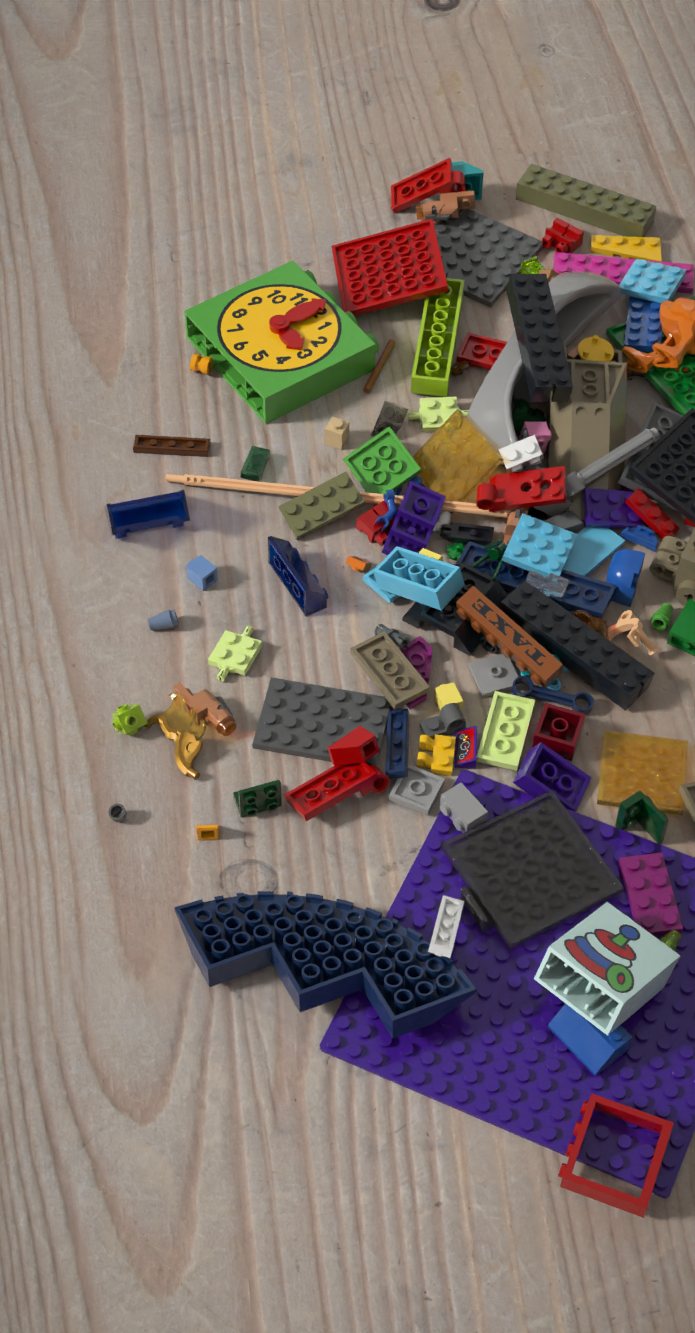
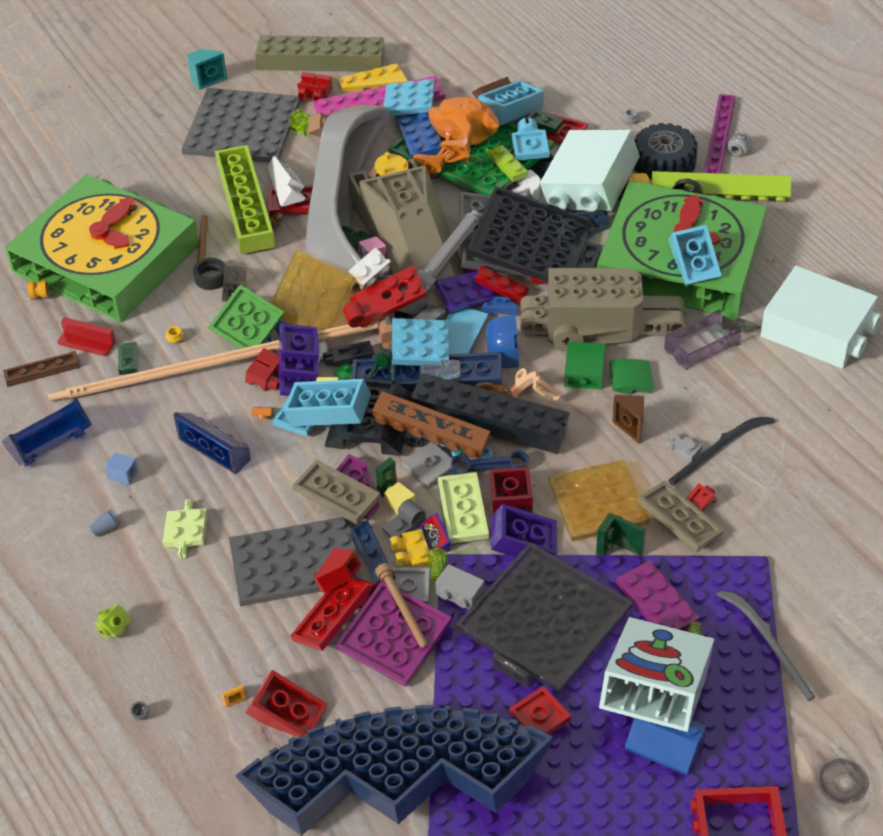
camera: 20 degrees left, 5 degrees down
(183, 729) = (168, 612): piece -> none
(208, 708) = (179, 586): nougat plate -> none
(226, 428) = (86, 337): none -> red panel
(250, 860) = (285, 706): none -> red slope
(258, 798) = (268, 647): dark green bracket -> none
(309, 454) = (174, 334): none -> yellow plate
(321, 505) = (207, 373): olive plate -> none
(336, 433) = (191, 307): tan brick -> none
(367, 393) = (209, 264): none -> black tyre
(381, 829) = (383, 638): none -> magenta plate
(389, 268) = (175, 155): red plate -> none
(389, 498) = (268, 345): blue arm -> none
(395, 636) = (332, 462): dark grey pin -> none
(397, 769) = (385, 573): none -> medium nougat piece
(435, 412) = (271, 263): yellowish green plate -> none
(436, 180) = (183, 71): red hinge -> none
(443, 671) = (385, 475): none -> dark green plate
(446, 926) = (496, 694): white plate -> none
(447, 206) = (202, 91): nougat plate -> none
(454, 775) = (437, 562): none -> clear neon green cone
(482, 961) = (540, 711): none -> red plate
(486, 332) = (285, 183): none -> white wedge
(539, 338) = (342, 166): black piece -> none
(661, 618) = (551, 366): bright green cone -> none

